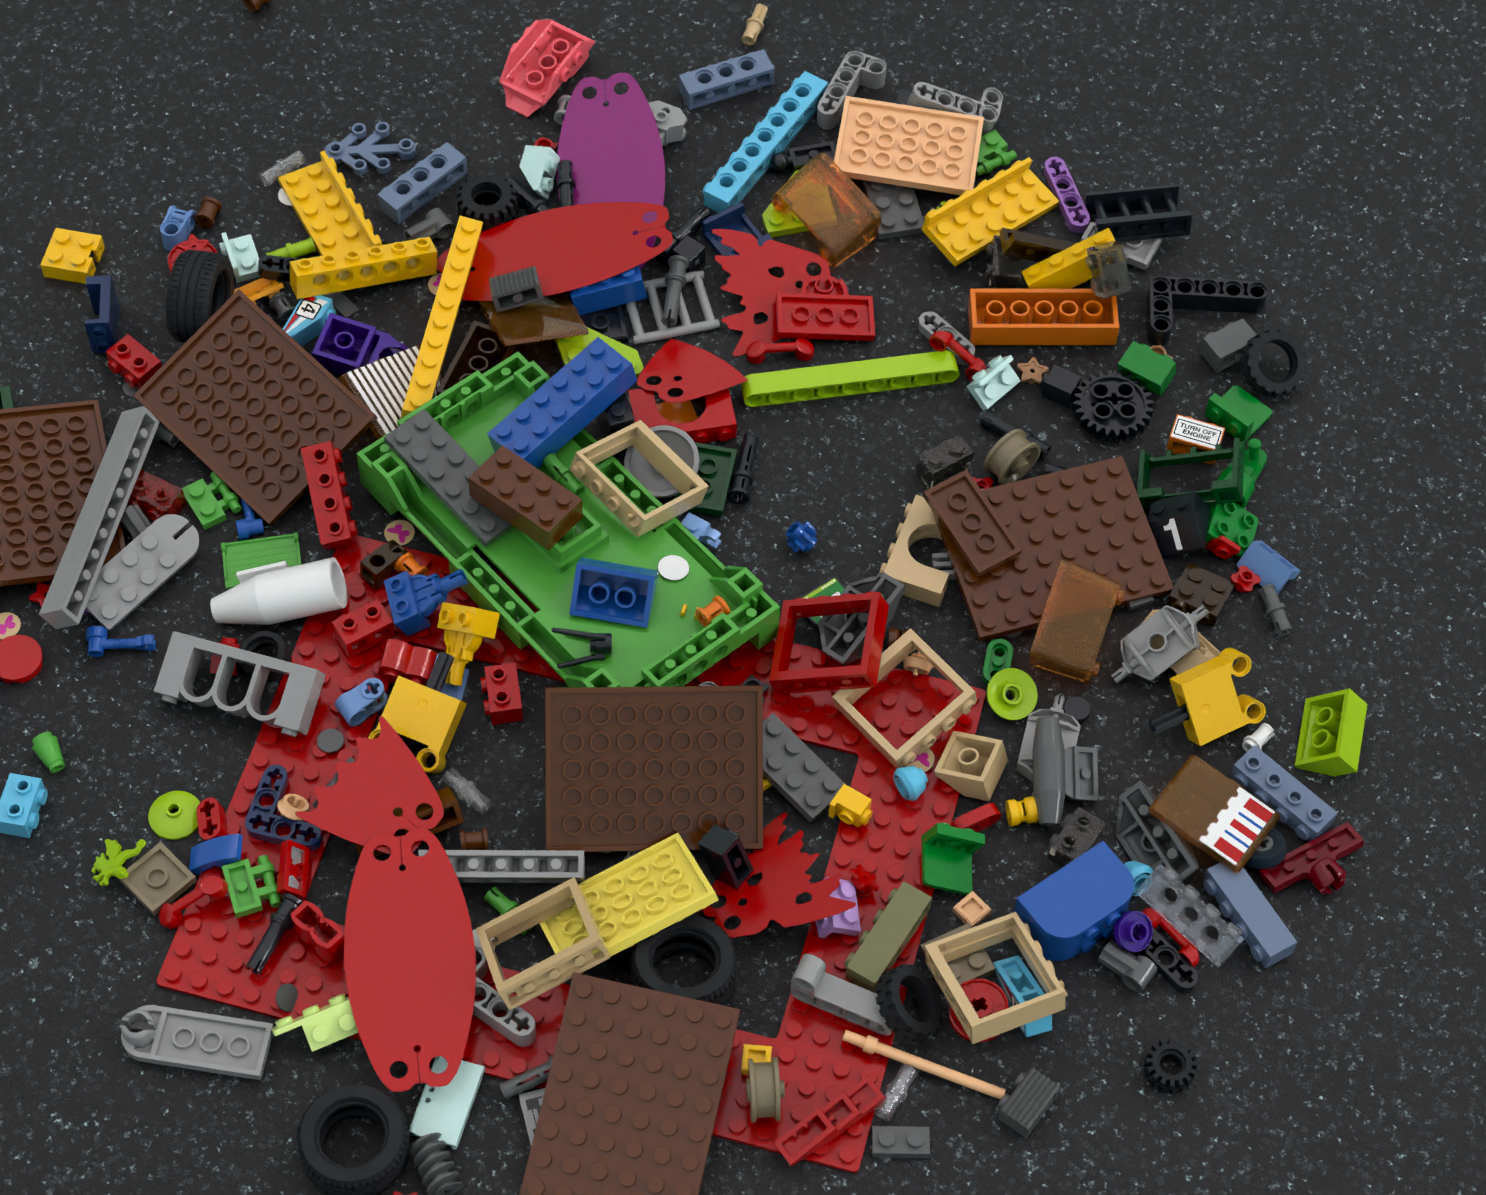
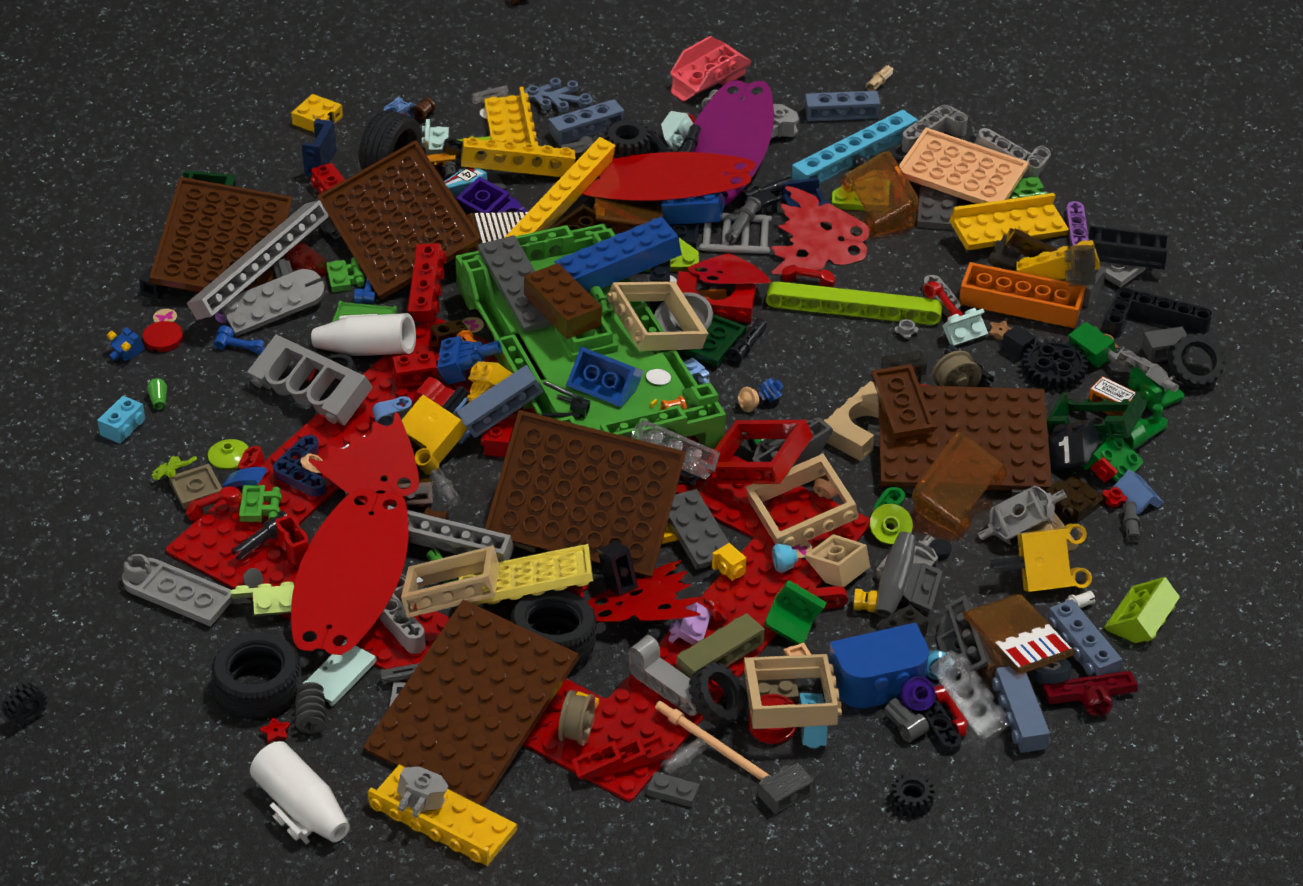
camera: 20 degrees right, 15 degrees down
(293, 869) = (294, 498): red piece -> none
(330, 740) = (360, 431): dark grey piece -> none
(497, 658) = (500, 401): none -> sand blue brick
(516, 289) = (621, 189): dark grey brick -> none
(775, 678) = (699, 458): none -> clear brick
(779, 557) = (748, 399): none -> light nougat hat
(825, 313) = (852, 259): red plate -> none
(924, 394) = (906, 328): none -> light grey plate
(1240, 397) = (1129, 360): none -> light grey plate

